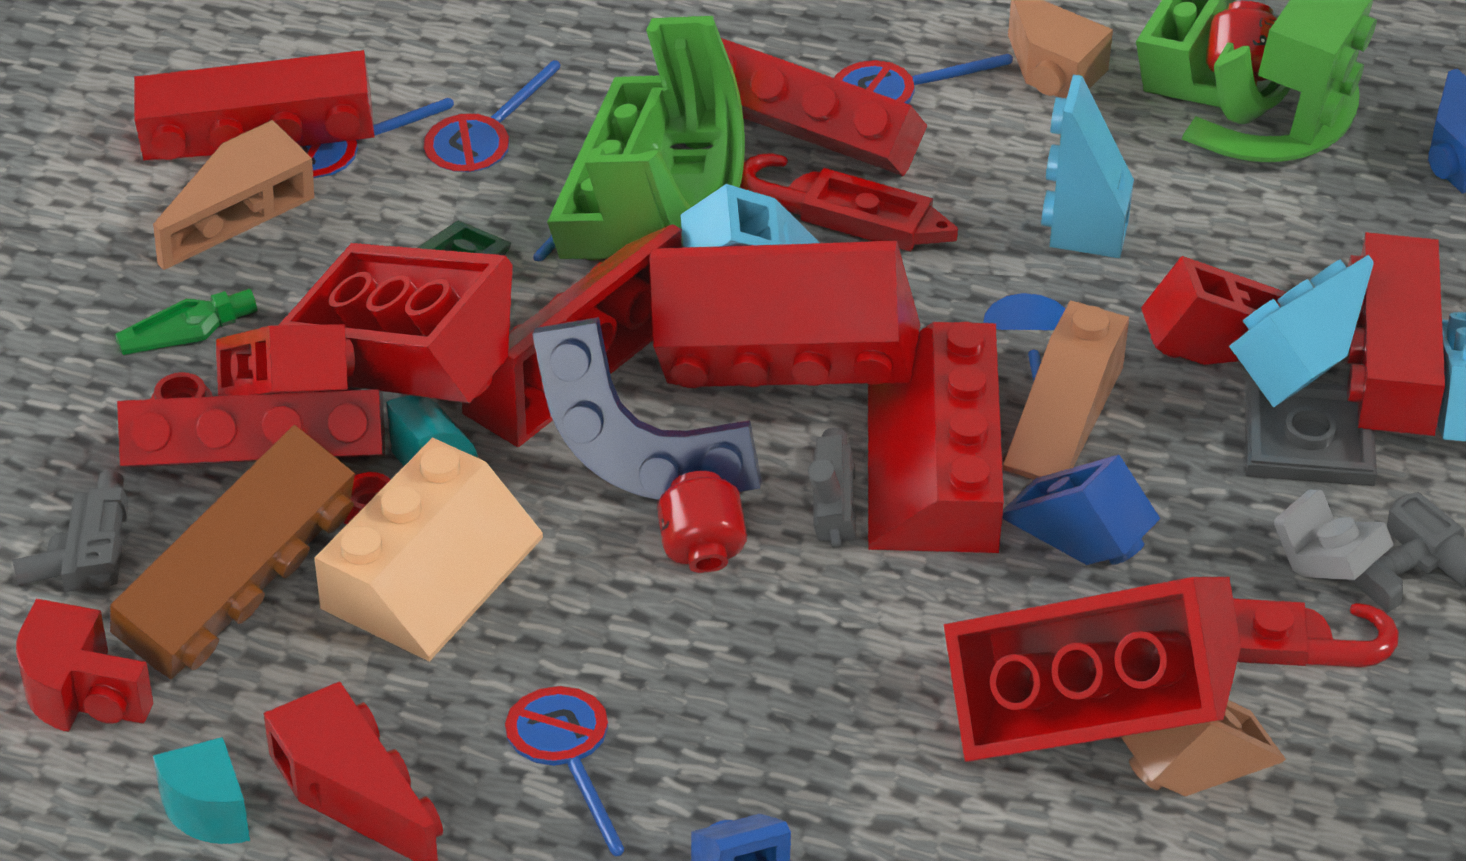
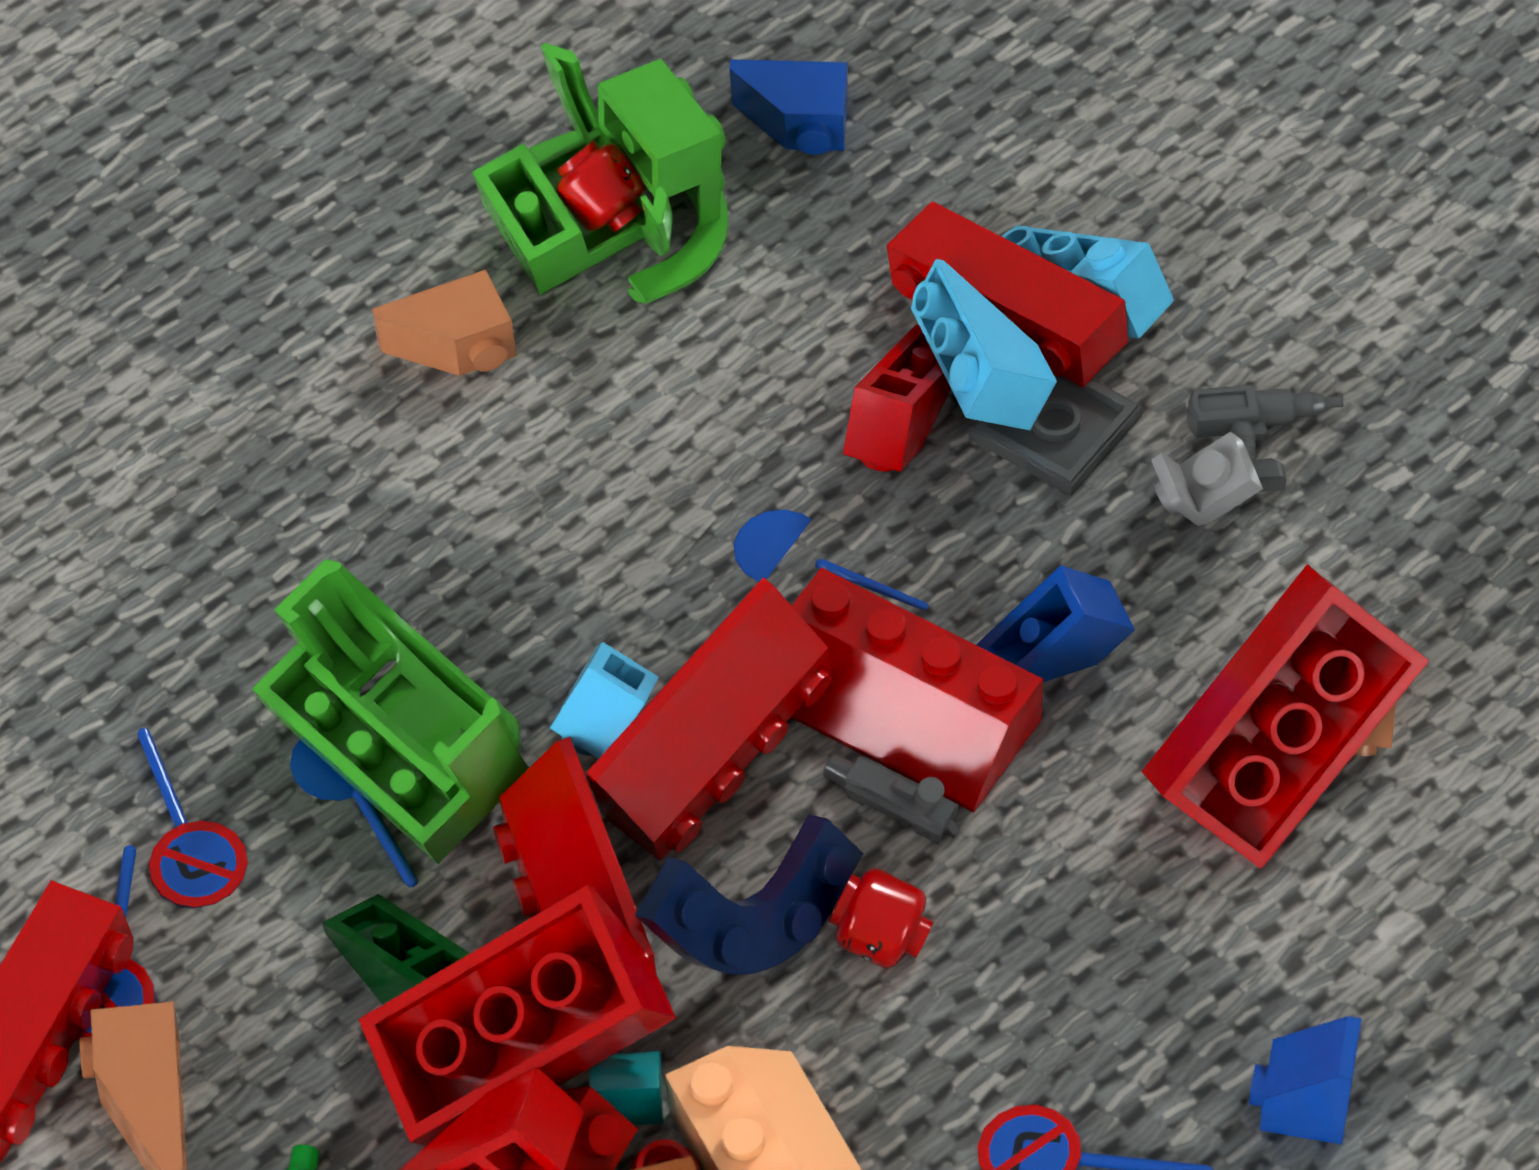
camera: 55 degrees left, 10 degrees up
(825, 110) = (421, 544): red brick -> none
(853, 205) = (544, 595): red plate -> none
(898, 84) = (381, 490): blue piece -> none
(1068, 390) = (904, 556): nougat slope -> none
(1092, 180) = (687, 410): medium azure slope -> none
(1301, 636) = (1255, 584): red plate -> none

